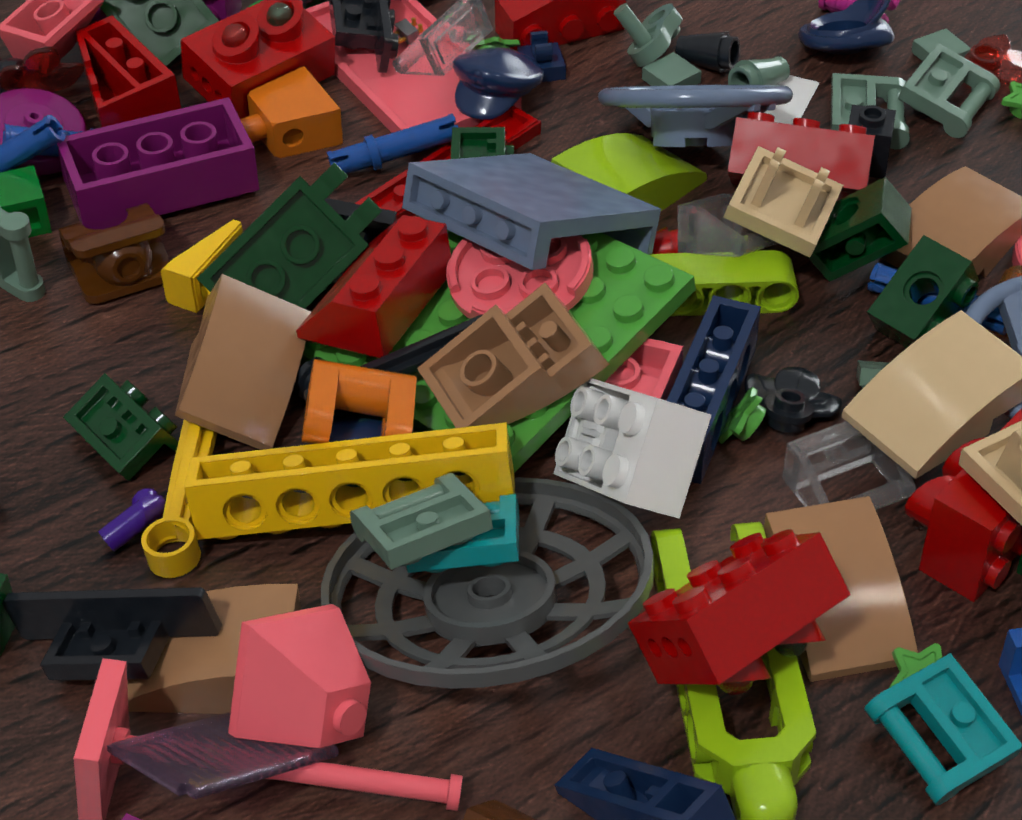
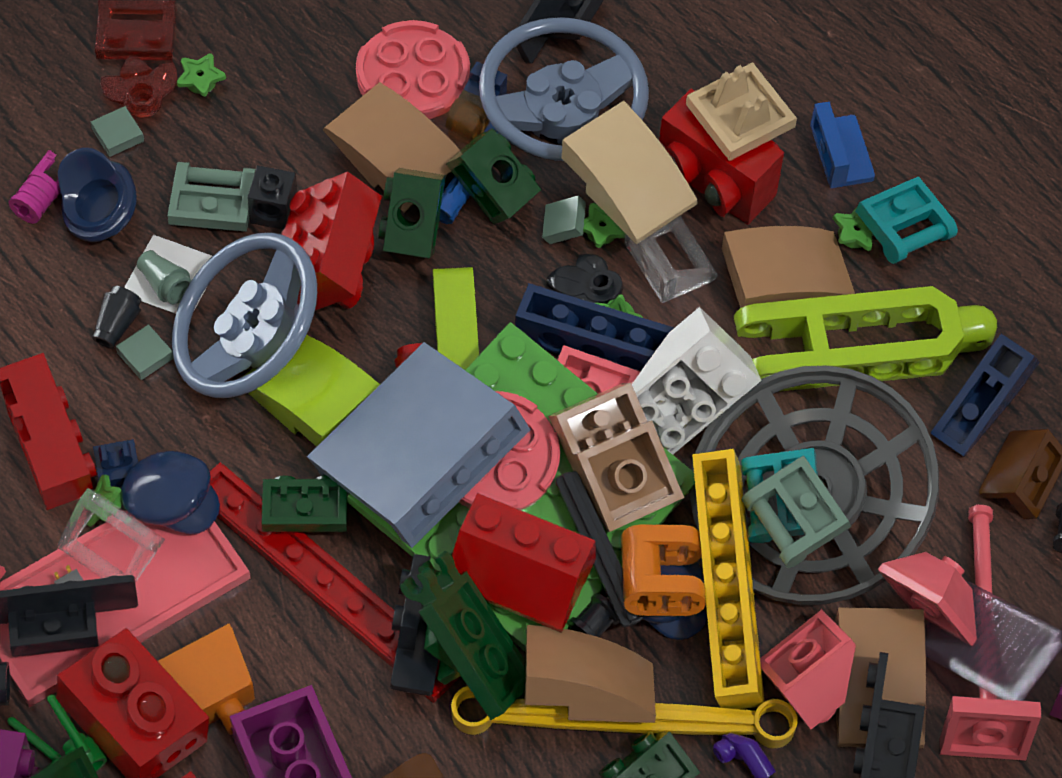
camera: 95 degrees left, 15 degrees up
(180, 273) = (446, 734): yellow slope -> none
(216, 558) = (812, 668): none -> coral slope
(393, 145) = (269, 599): blue pin -> none
(652, 35) = (101, 363): sand green piece -> none
(707, 232) = (425, 326): clear tile -> none
(739, 611) = (873, 306): red piece -> none
(783, 200) = (405, 252): tan plate -> none
(938, 81) = (191, 131): sand green plate -> none

